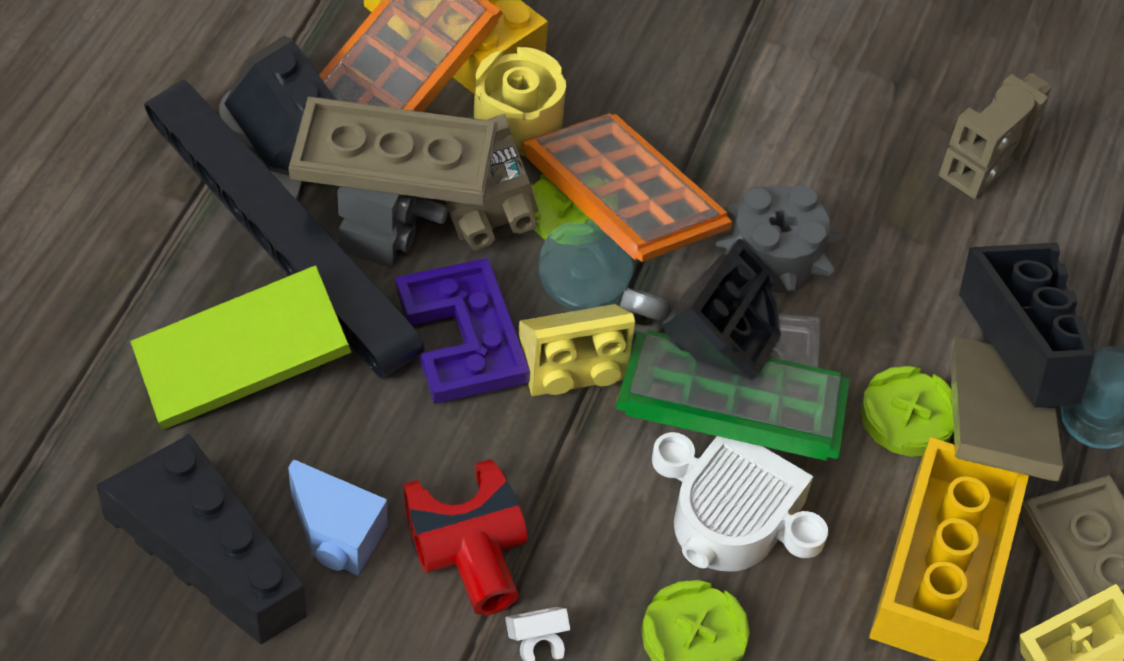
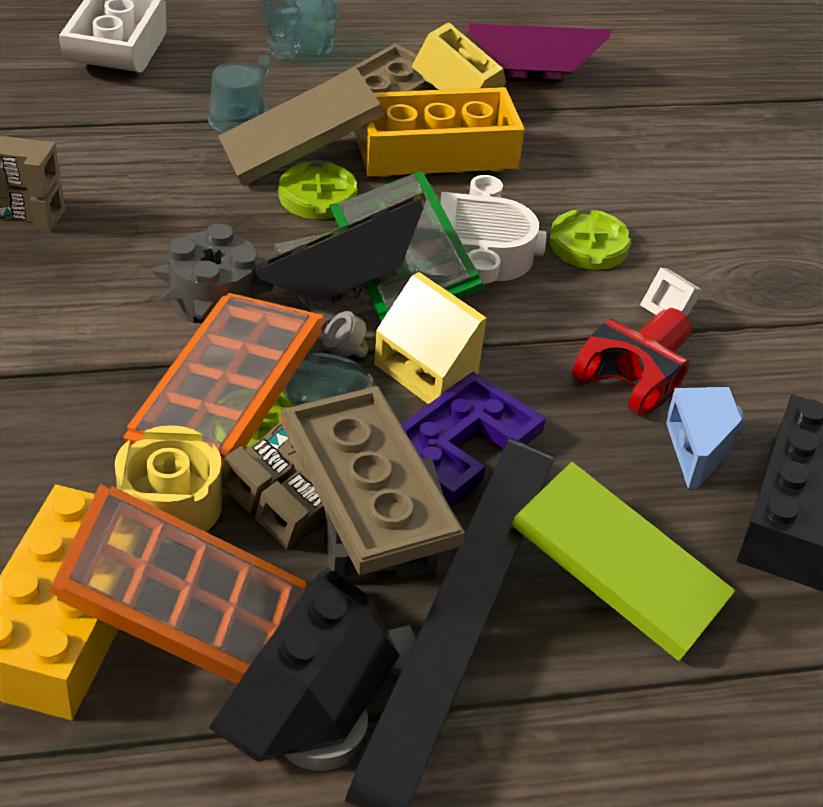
camera: 120 degrees left, 10 degrees down
(1030, 319) = (216, 120): black wedge -> none

